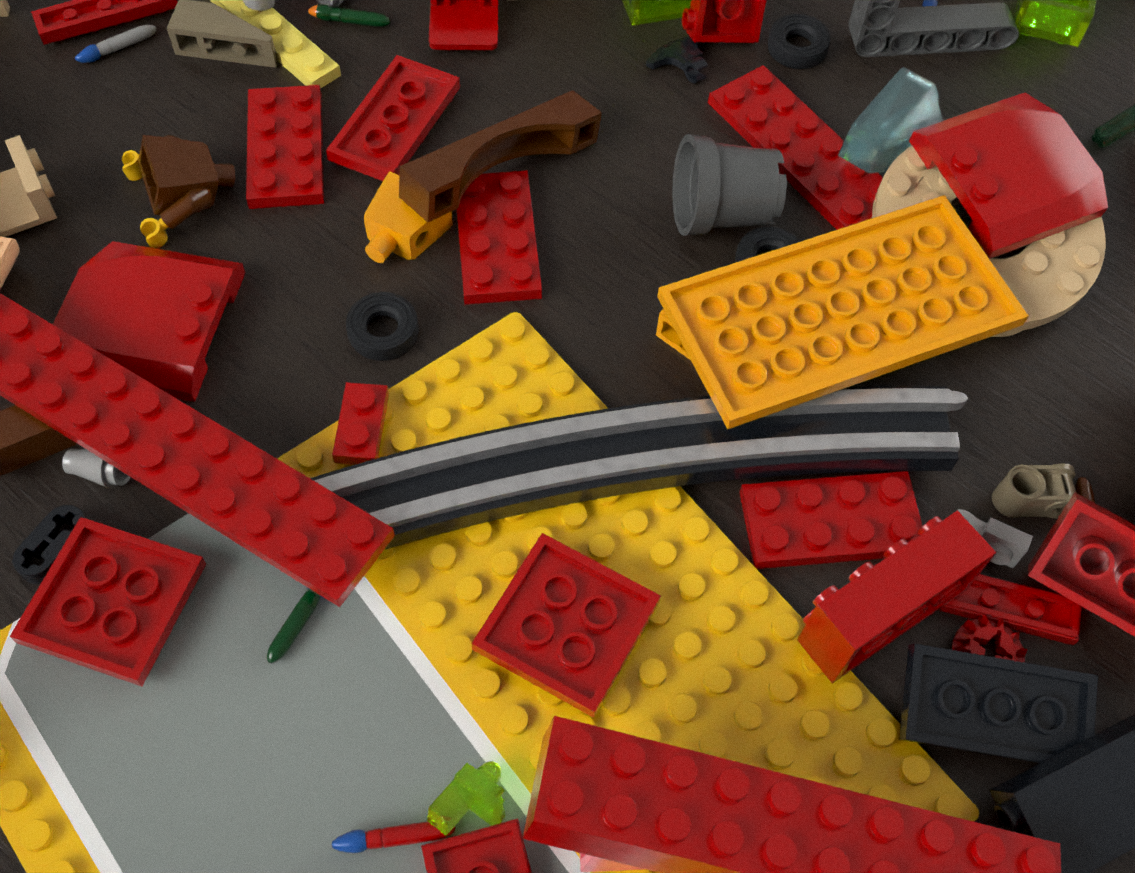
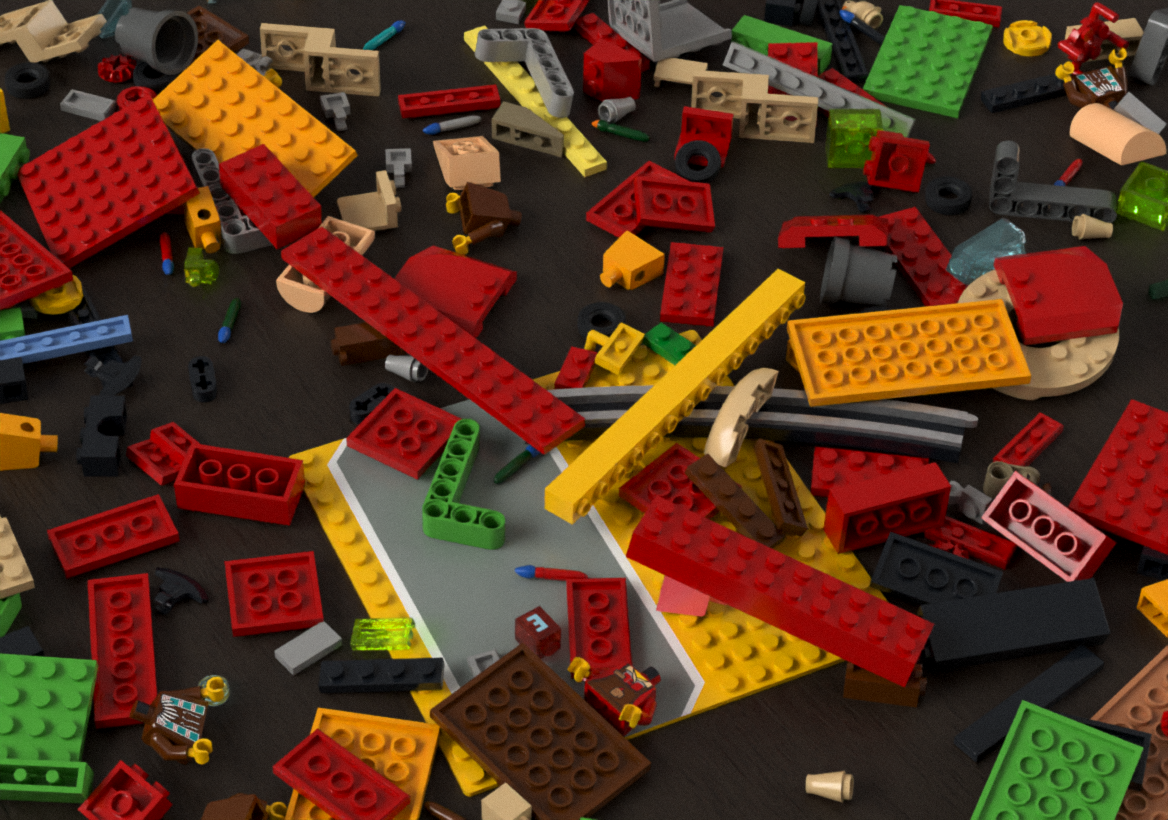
camera: 15 degrees right, 15 degrees down
(43, 115) = (398, 162): none -> light grey plate
(145, 97) = (468, 161): none -> light nougat slope
(203, 700) = (442, 513): none -> bright green beam
(285, 147) = (558, 207): red plate -> none
(414, 372) = (616, 349): none -> yellow plate
(439, 112) = (673, 204): none -> red plate
(439, 179) = (662, 237): reddish brown arch -> none
(463, 26) = (701, 148): none -> black tyre
(473, 791) = (598, 559): clear neon green piece -> none
(503, 355) = (667, 343): none -> green hinge
(505, 493) = (673, 397): none -> yellow brick
(624, 461) = (730, 426): none -> tan brick
(638, 127) = (869, 228): none -> red wedge
(661, 637) = (733, 502): none -> reddish brown plate
(718, 584) = (780, 487): none -> reddish brown plate
(991, 58) = (1090, 228): none -> tan cone
(1030, 414) = (1030, 441): none -> red tile

